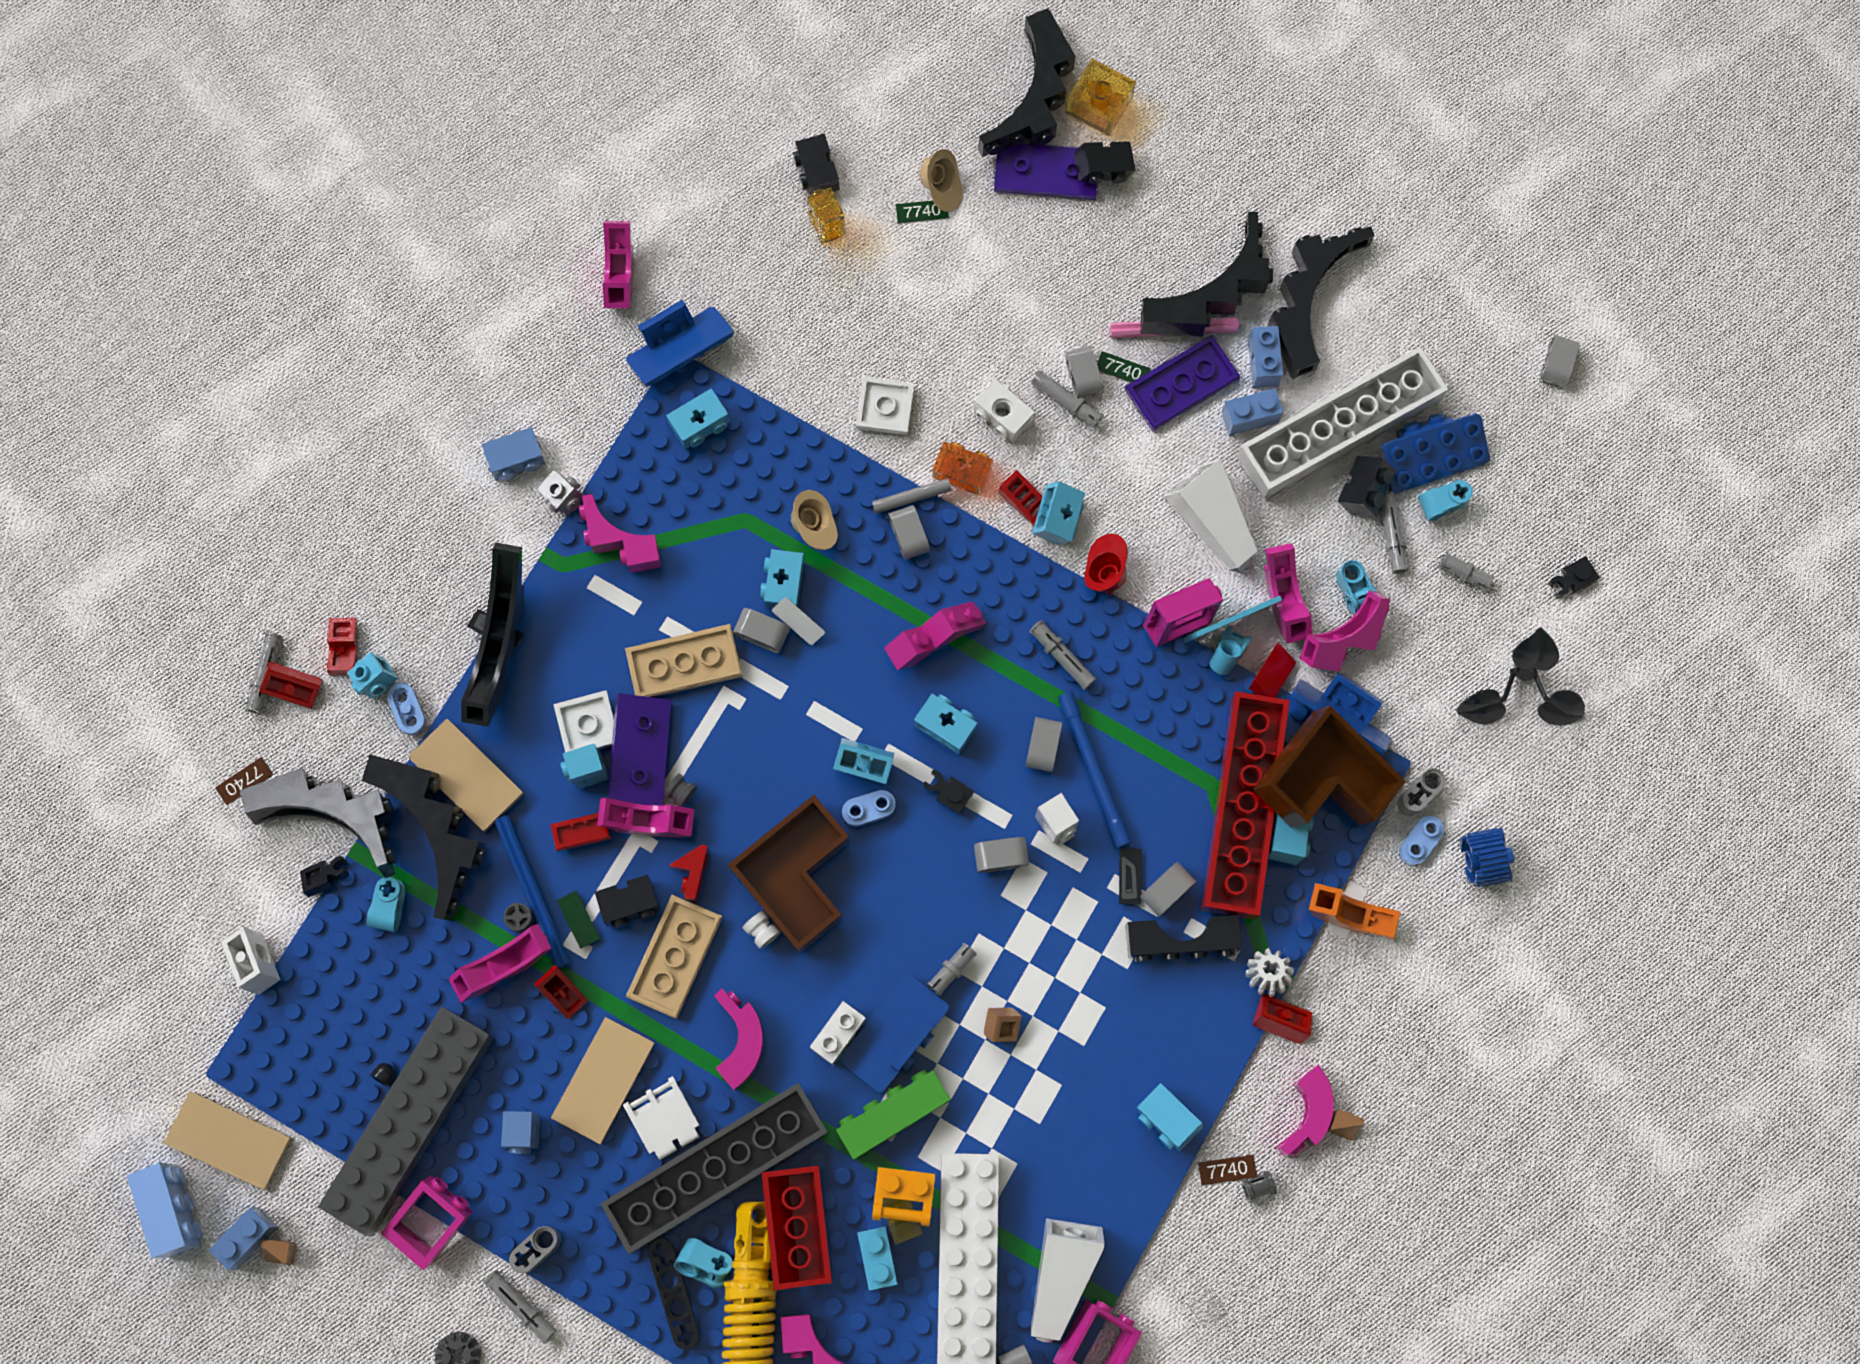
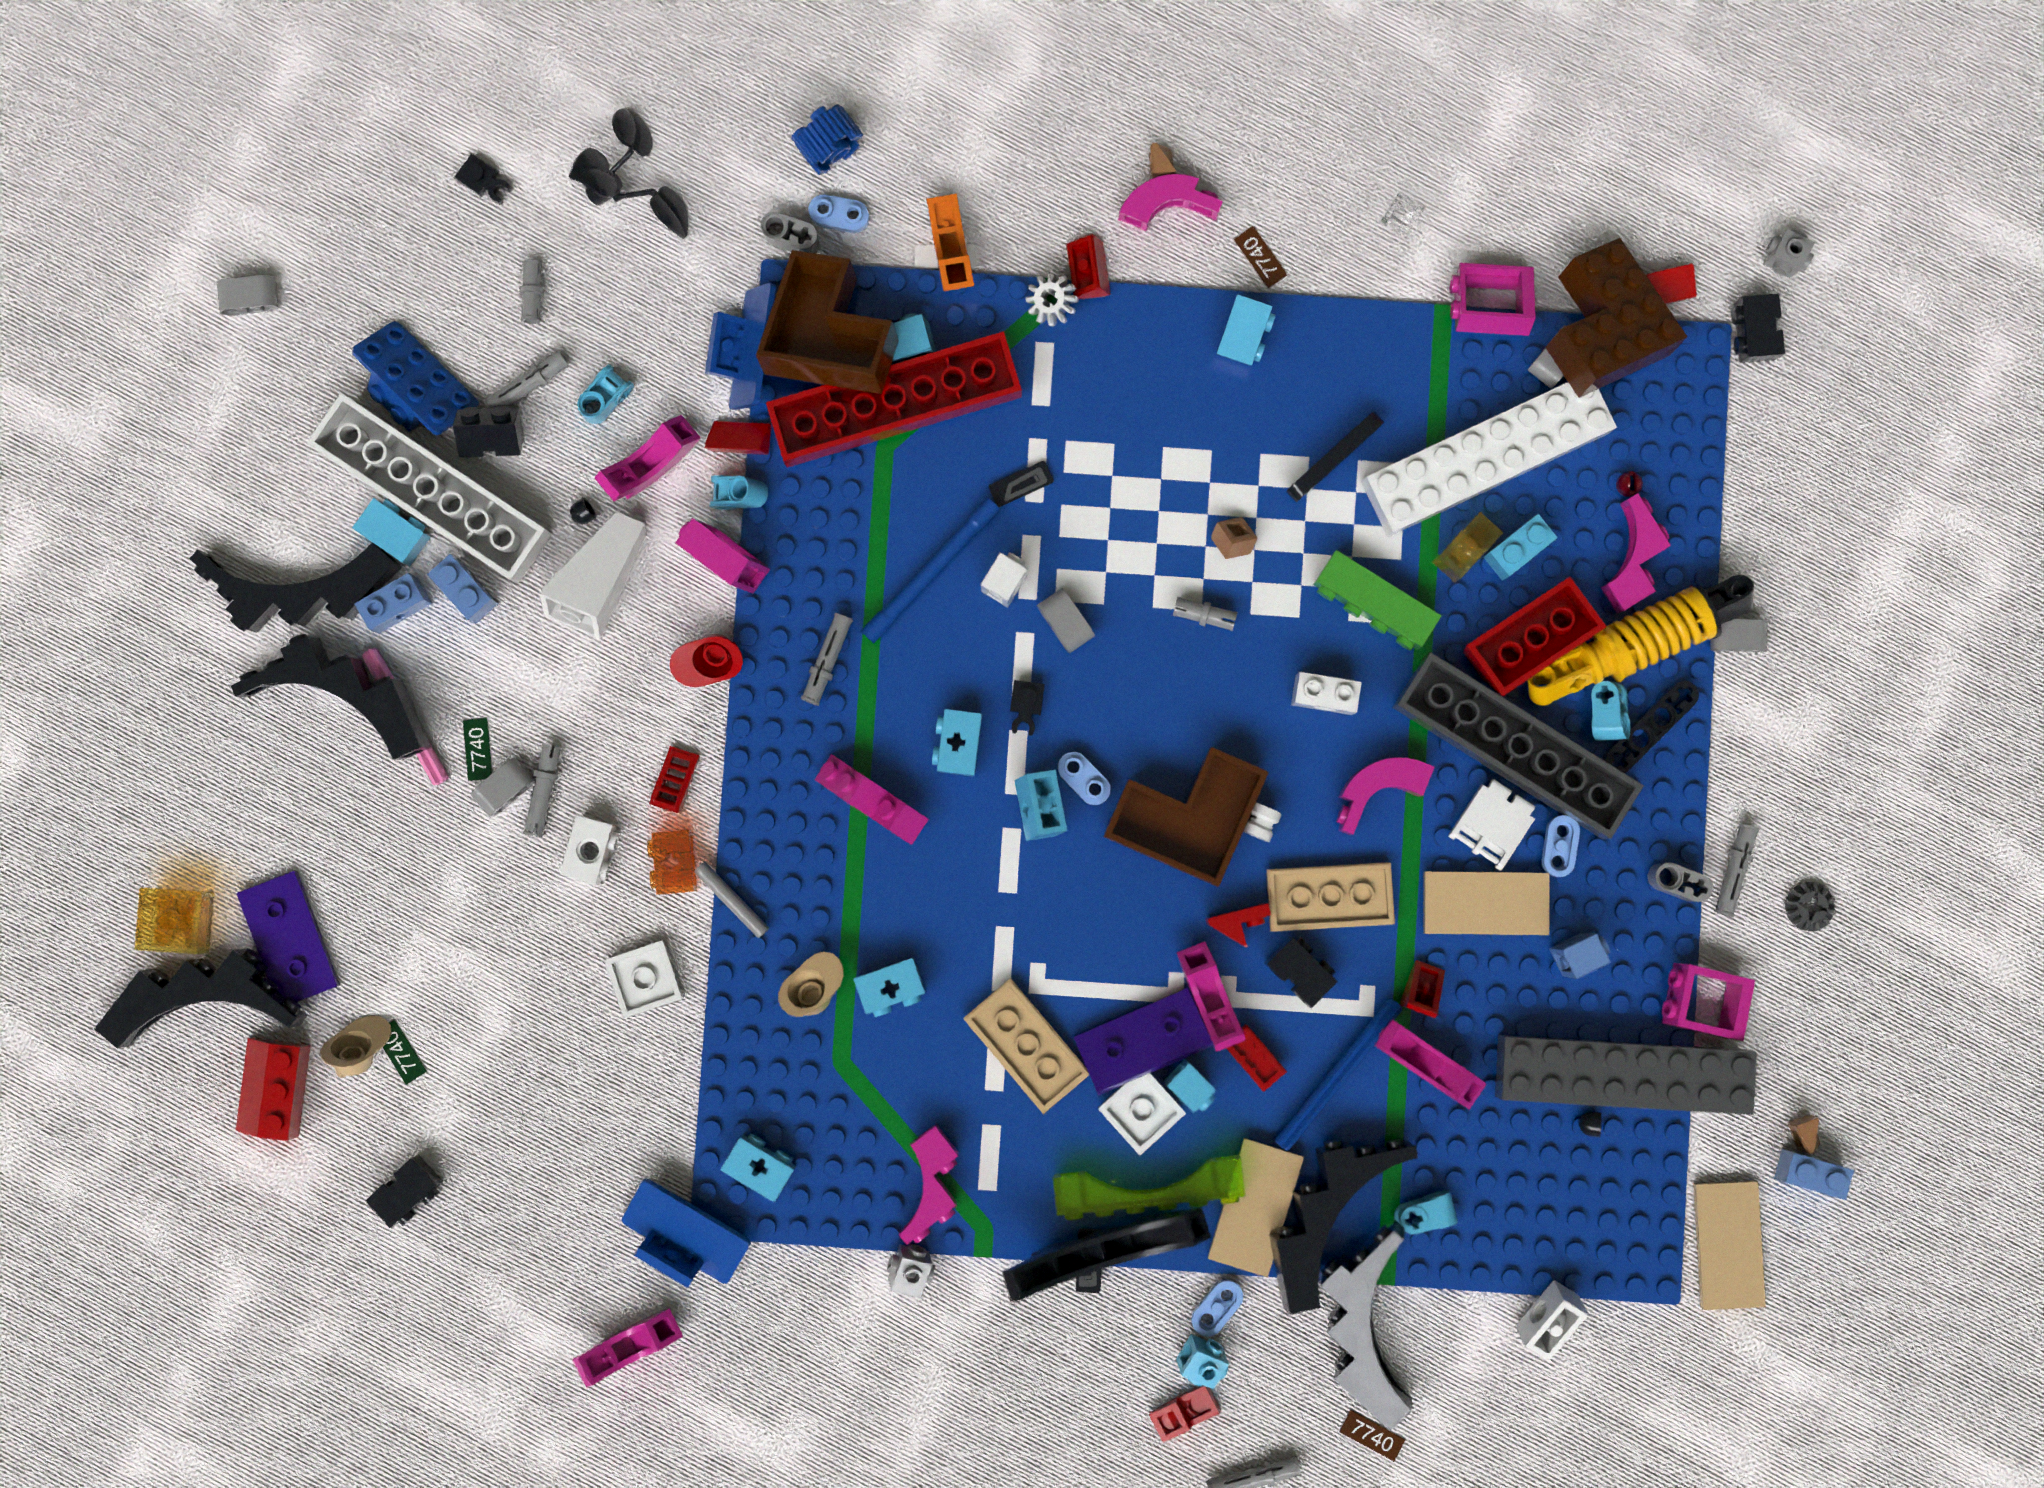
camera: 115 degrees left, 10 degrees up
(164, 1210) = (1830, 1265): light blue brick -> none
(290, 685) = (1253, 1442): red slope -> none
(320, 875) = (1429, 1299): black plate -> none
(513, 454) = (892, 1345): medium blue brick -> none
(515, 914) = (1375, 1077): dark grey wheel -> none
(547, 649) = (1084, 1193): none -> clear neon green arch
(578, 919) = (1341, 1013): dark green sticker -> none
(617, 1165) = (1564, 846): none -> light blue plate
(680, 790) = (1163, 977): dark grey wheel -> none
(761, 630) = (954, 982): light grey beam -> none
(798, 621) = (926, 948): white sticker -> none
(826, 215) = (460, 1150): clear yellow brick -> none
(894, 1034) = (1296, 637): blue bracket -> none
(903, 1186) = (1445, 550): light orange plate -> none
(909, 532) = (773, 882): light grey beam -> none
(940, 111) = (273, 1089): none -> red slope
(1028, 1142) = (1335, 456): none -> black beam
(1043, 744) = (930, 633): light grey beam -> none
(1059, 513) = (675, 736): medium azure brick -> none
(1064, 1270) = (1439, 361): white slope -> none
(1103, 163) = (253, 882): black brick -> none
(1148, 940) = (1040, 367): black arch -> none
(1168, 889) = (1017, 438): light grey beam -> none
(1182, 383) = (464, 678): dark purple tile -> none
(1232, 619) = (704, 503): medium azure piece -> none
(1258, 1186) = (1263, 217): dark grey bush -> none
(1270, 529) = (582, 512): none -> black hinge
(1321, 380) = (392, 532): none -> medium azure brick
(1361, 631) = (651, 366): dark pink arch -> none
(1441, 501) = (464, 348): medium azure piece -> none

